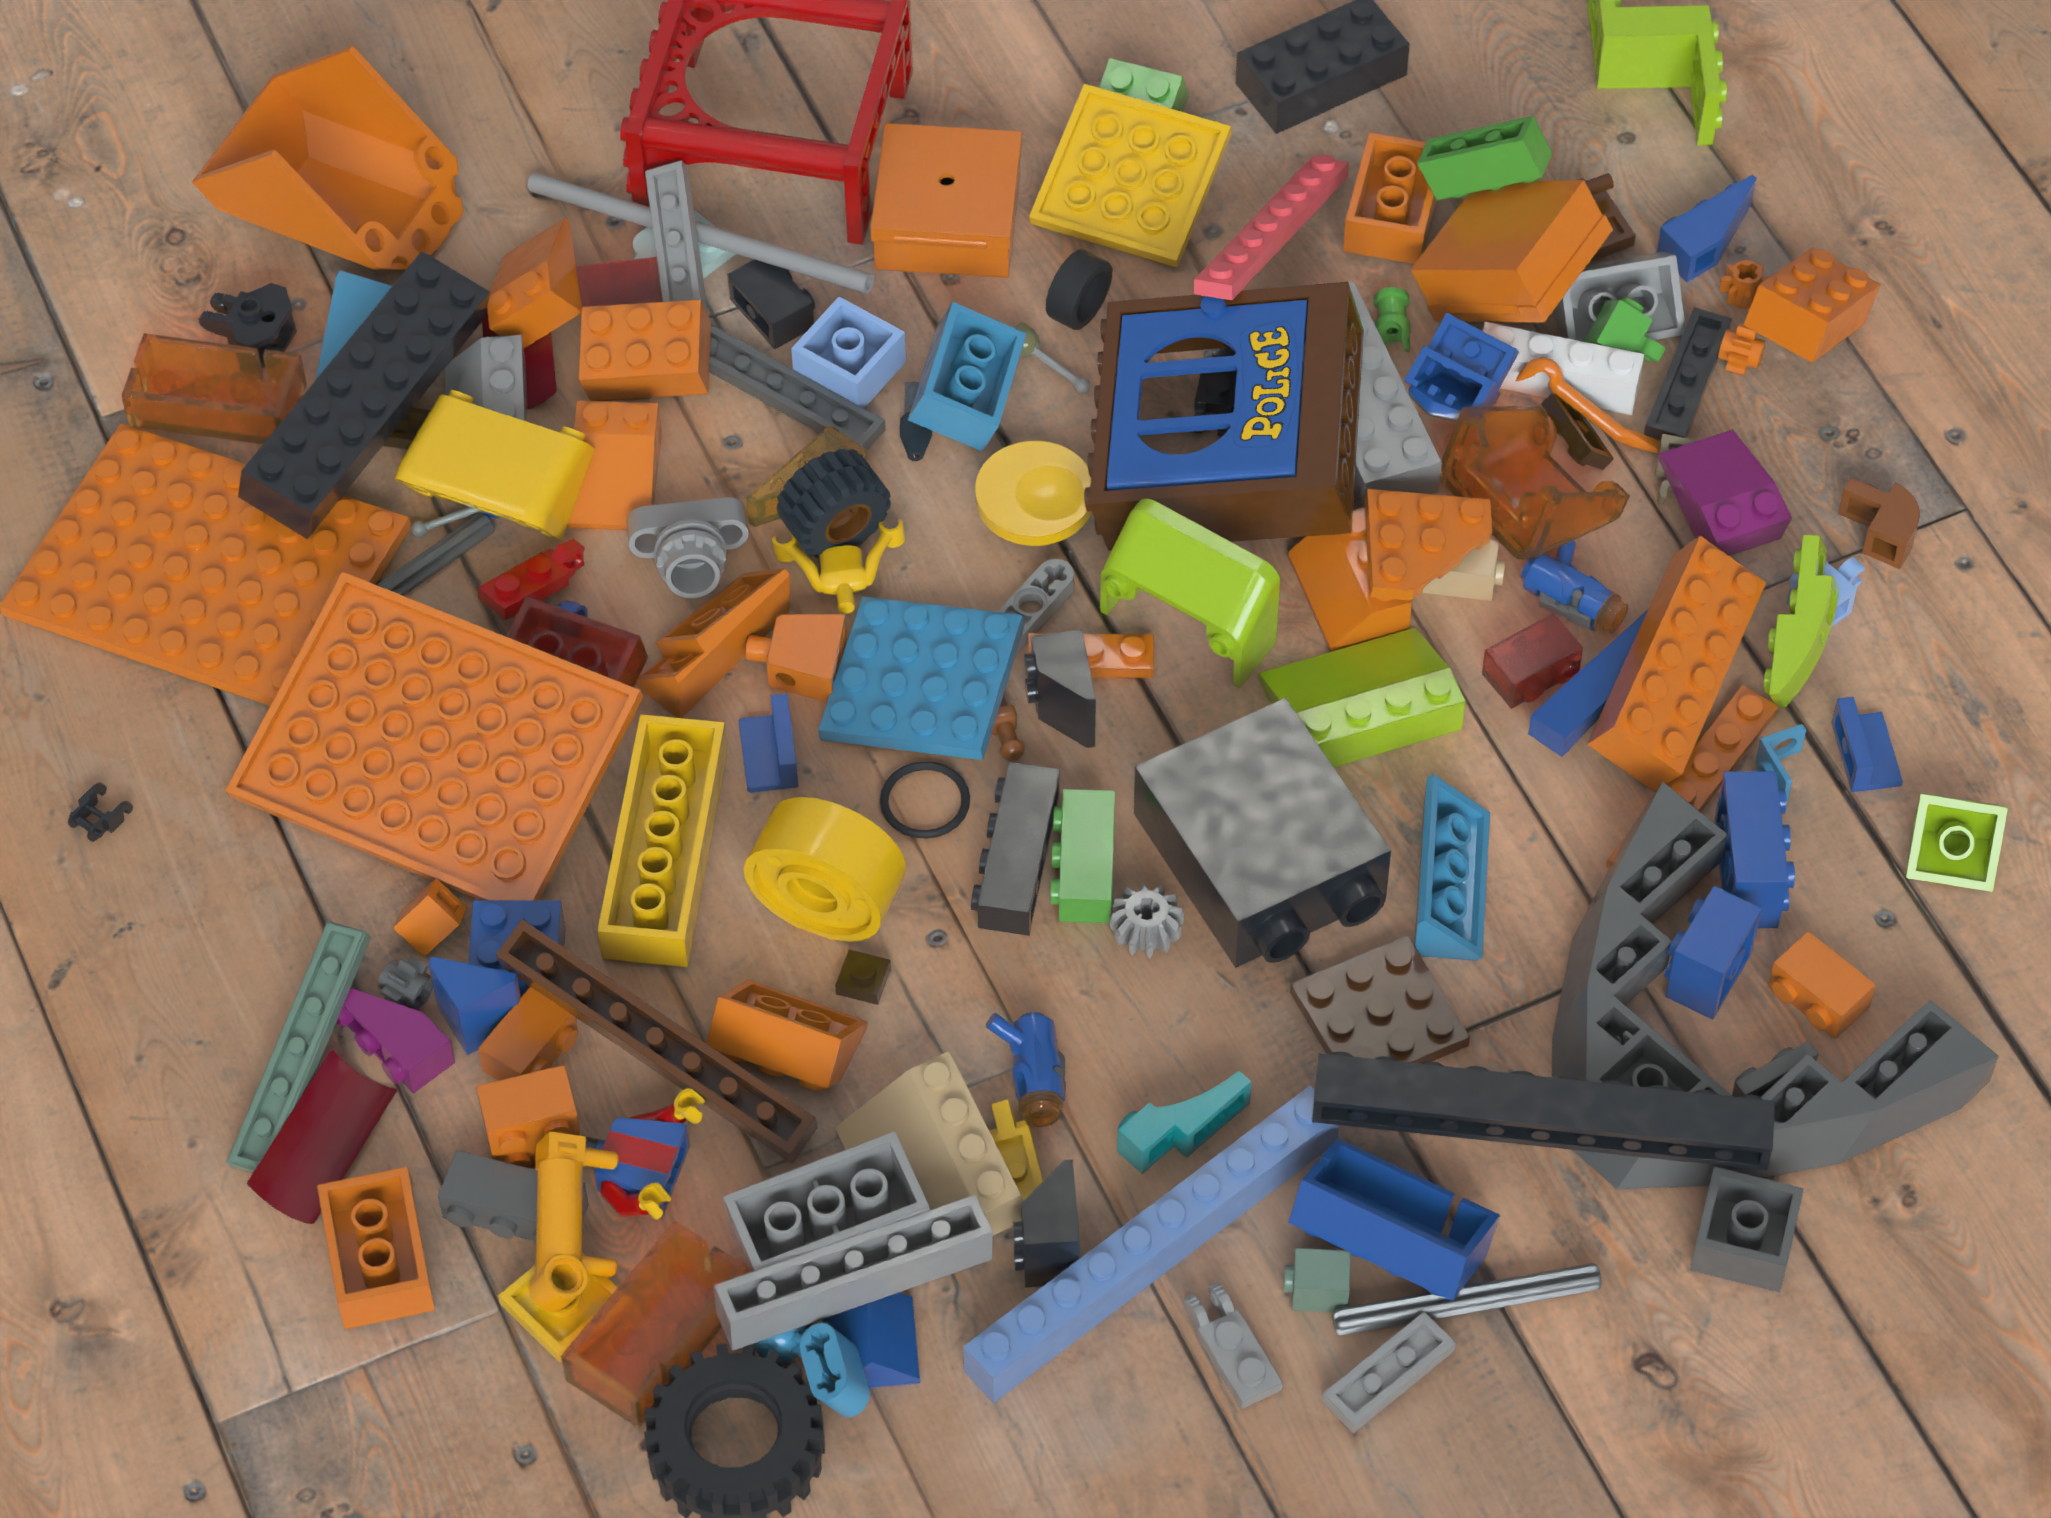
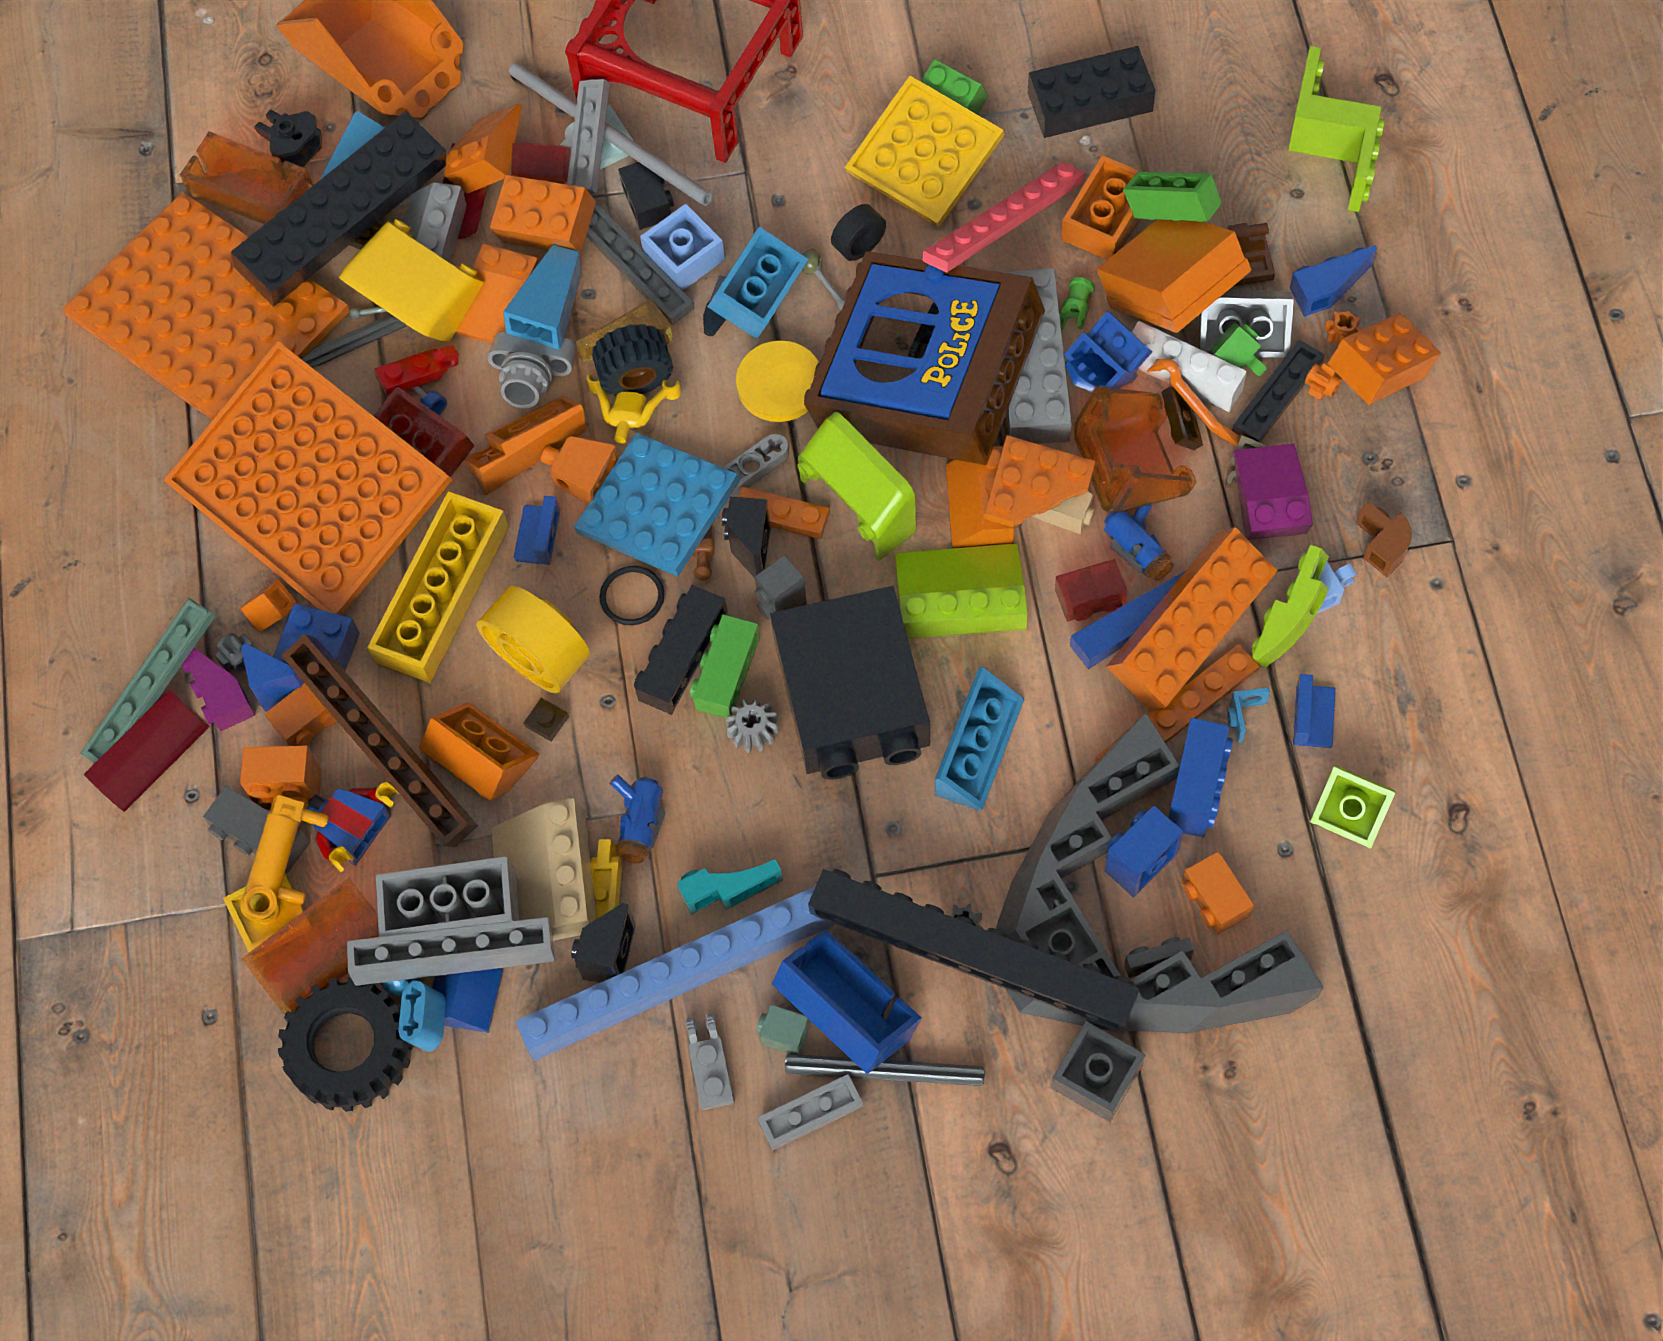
camera: 20 degrees right, 10 degrees up
(108, 822) = (72, 470): black piece -> none
(375, 1248) = (152, 843): orange brick -> none
(685, 454) = (546, 299): none -> dark azure slope
(946, 200) = (788, 143): orange container -> none
(1128, 738) = (779, 588): none -> dark grey brick
(1381, 1007) = (895, 835): plate -> none

